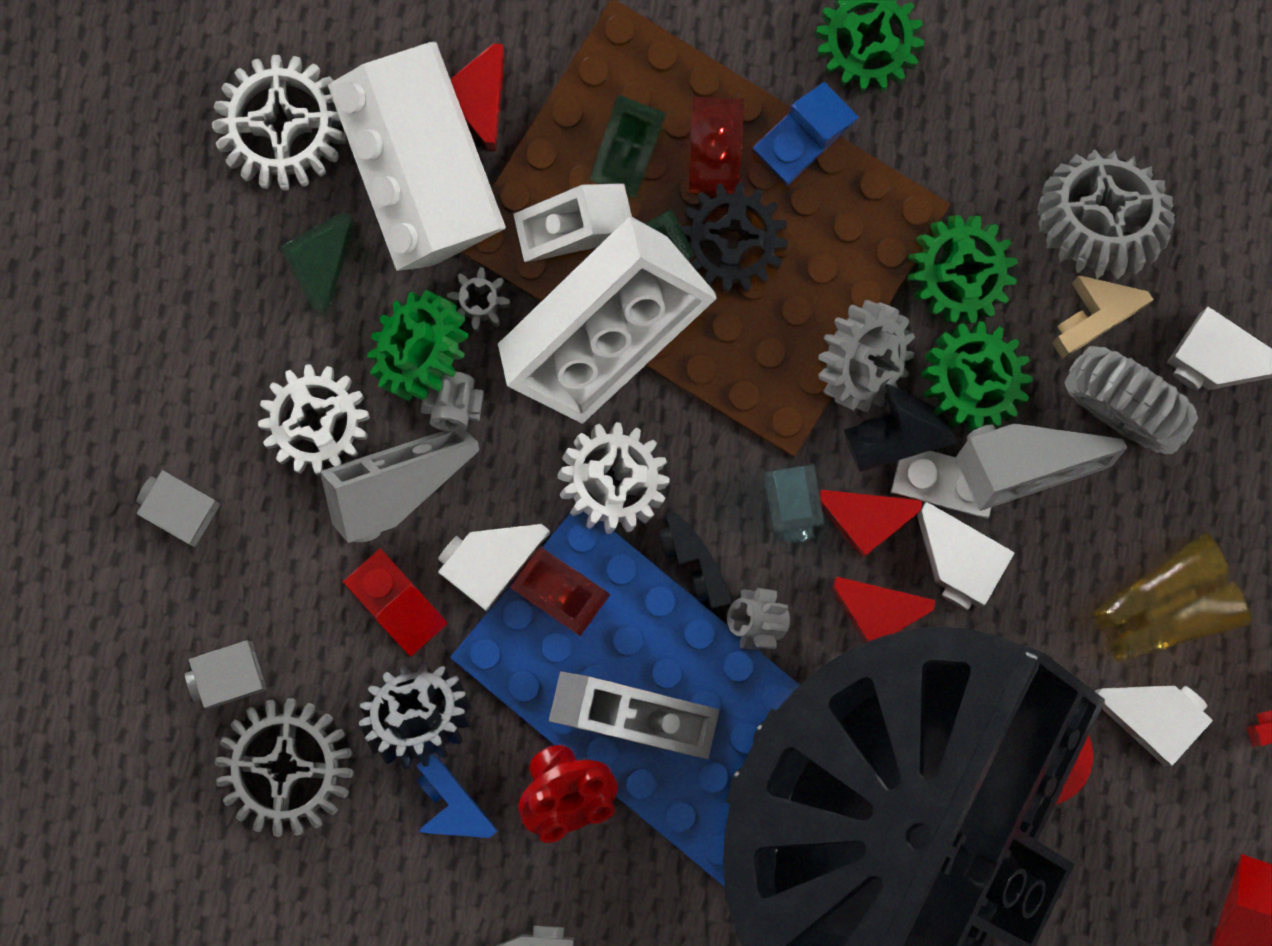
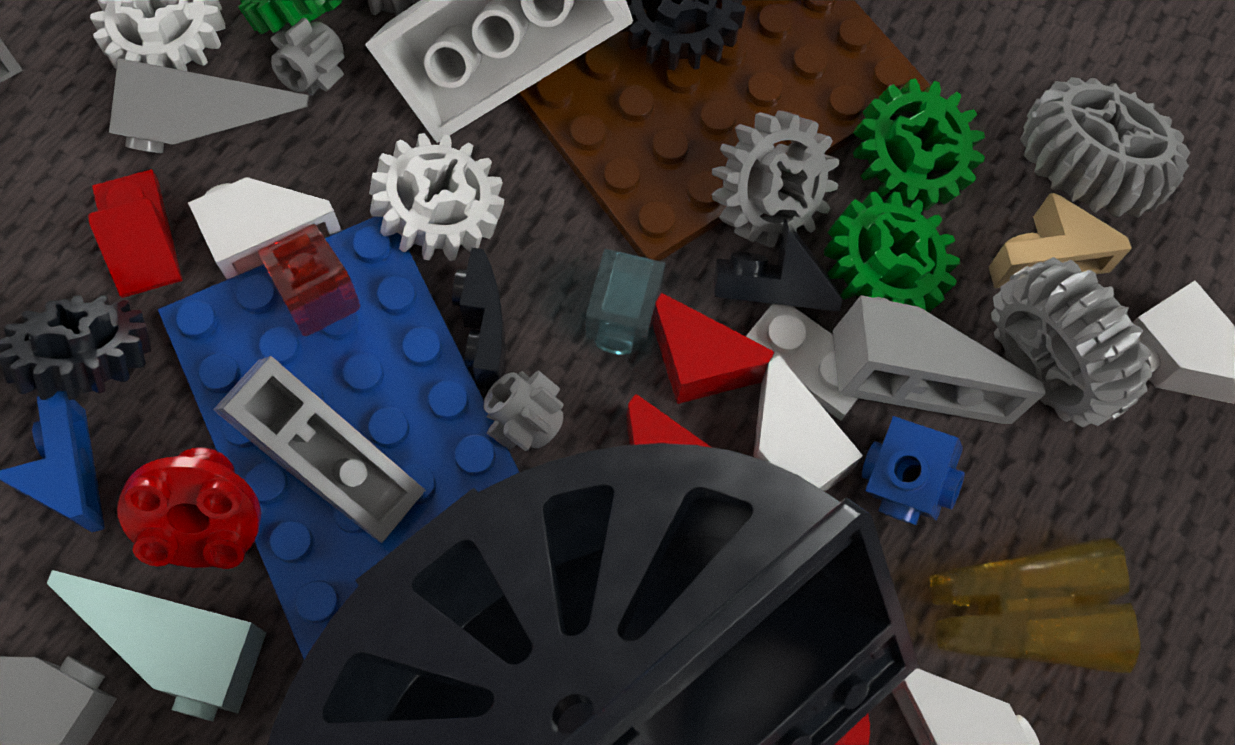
camera: 25 degrees right, 15 degrees down
(602, 888) = (172, 646): none -> light aqua slope
(1057, 528) = (907, 448): none -> blue brick

